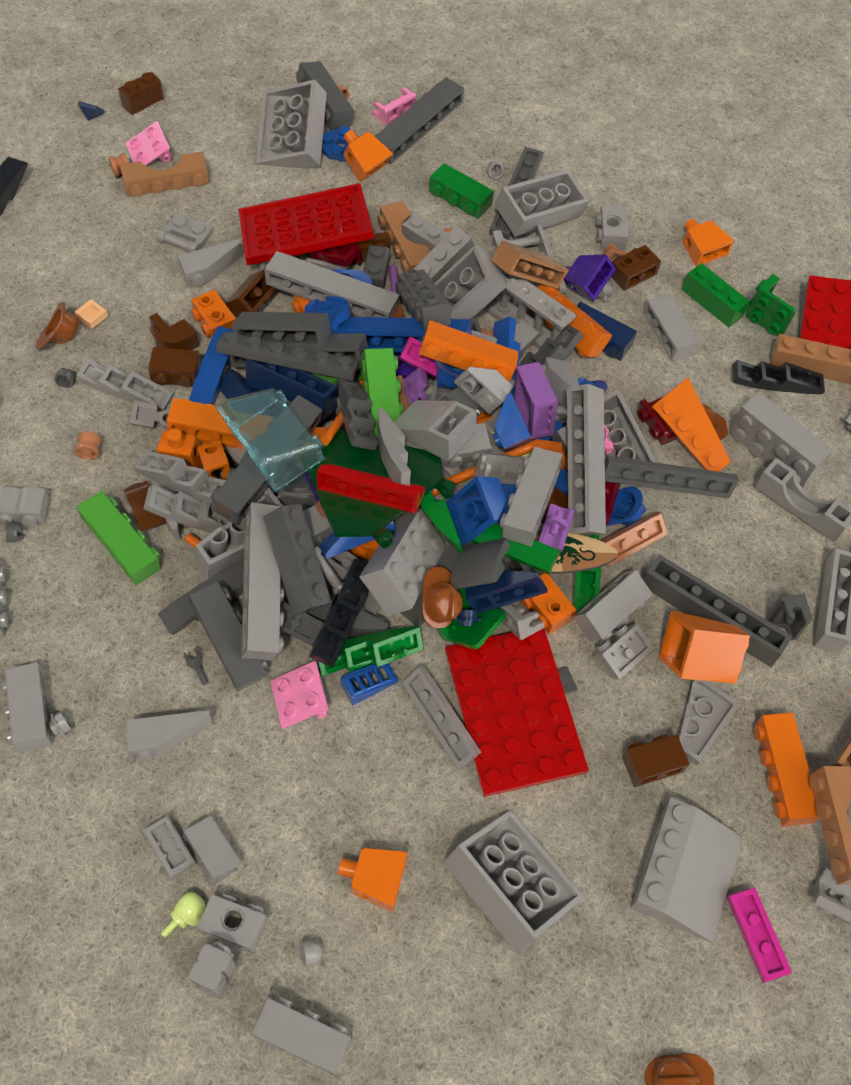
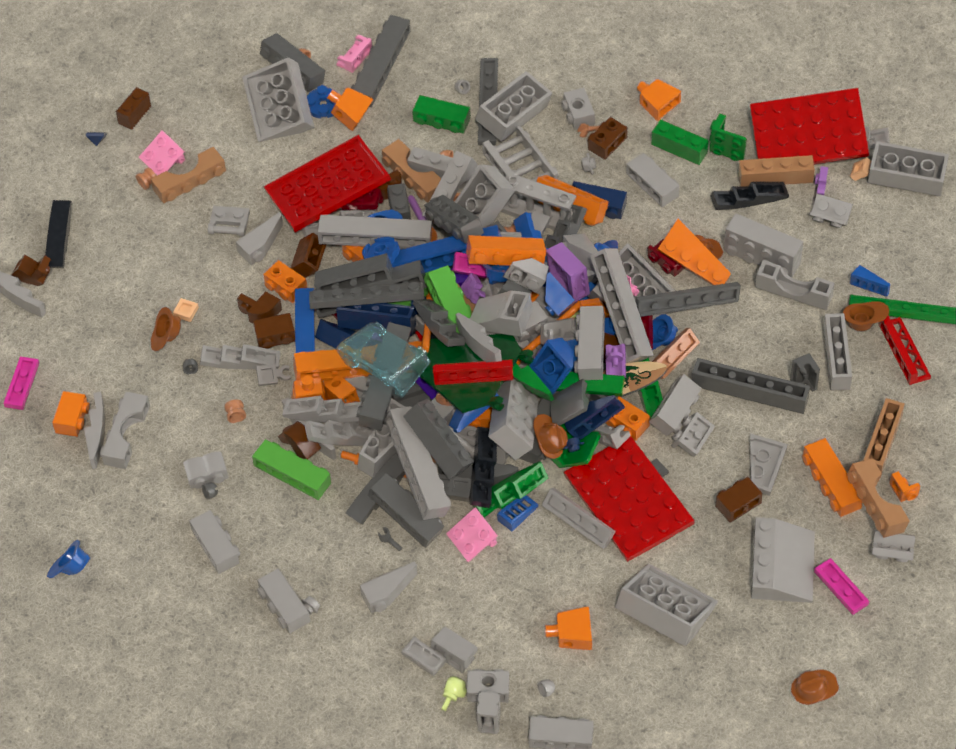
camera: 10 degrees left, 5 degrees down
(529, 264) = (526, 165): medium nougat brick -> none
(589, 275) = (573, 157): dark purple torso -> none
(703, 648) = (749, 413): orange slope -> none

